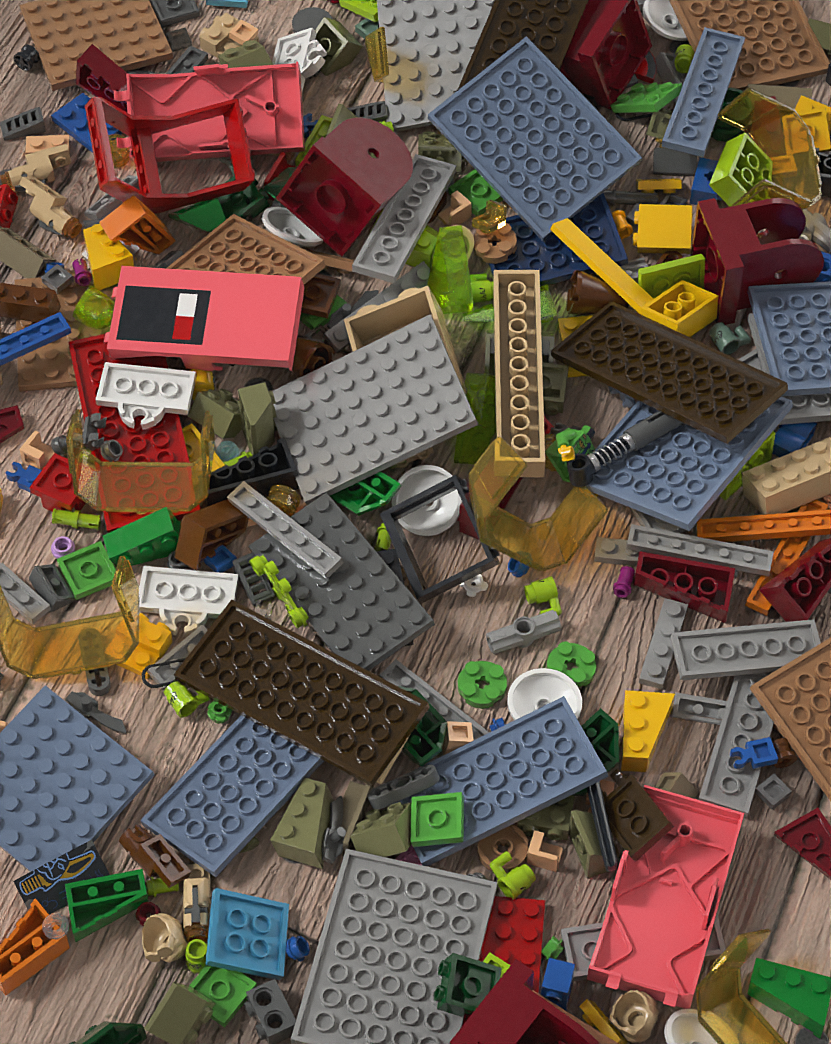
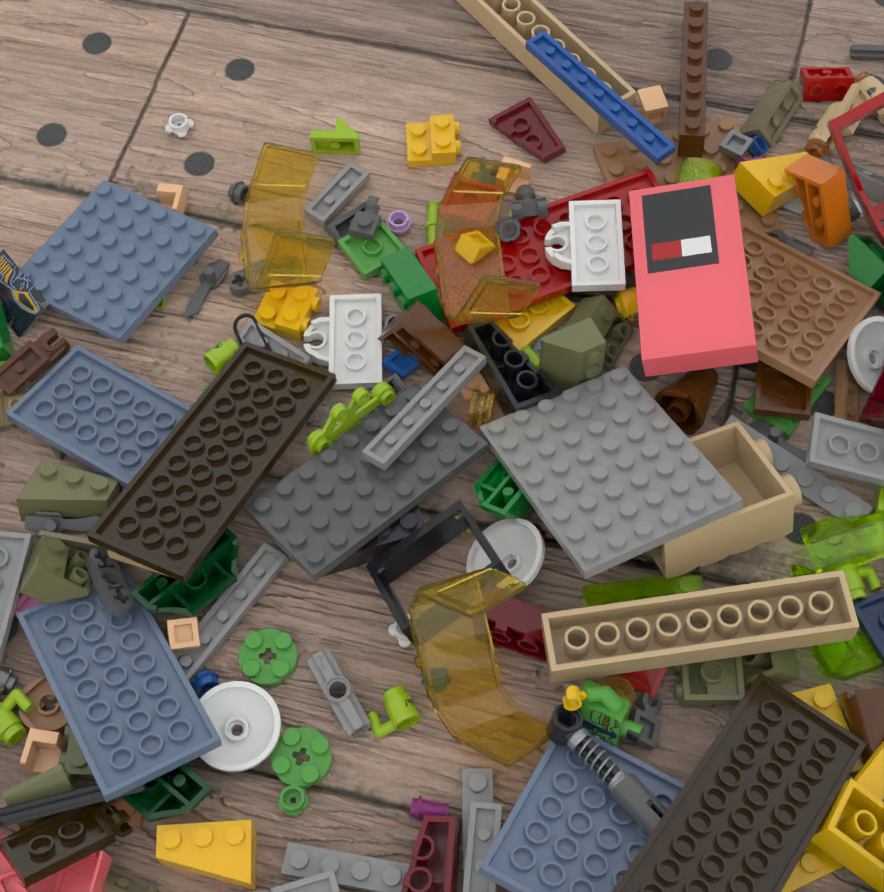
camera: 85 degrees right, 5 degrees up
(63, 568) = (366, 223): none -> dark grey plate
(123, 479) = (473, 246): none -> yellow slope
(437, 819) = (60, 620): bright green plate -> none
(605, 667) = (285, 800): none -> bright green plate

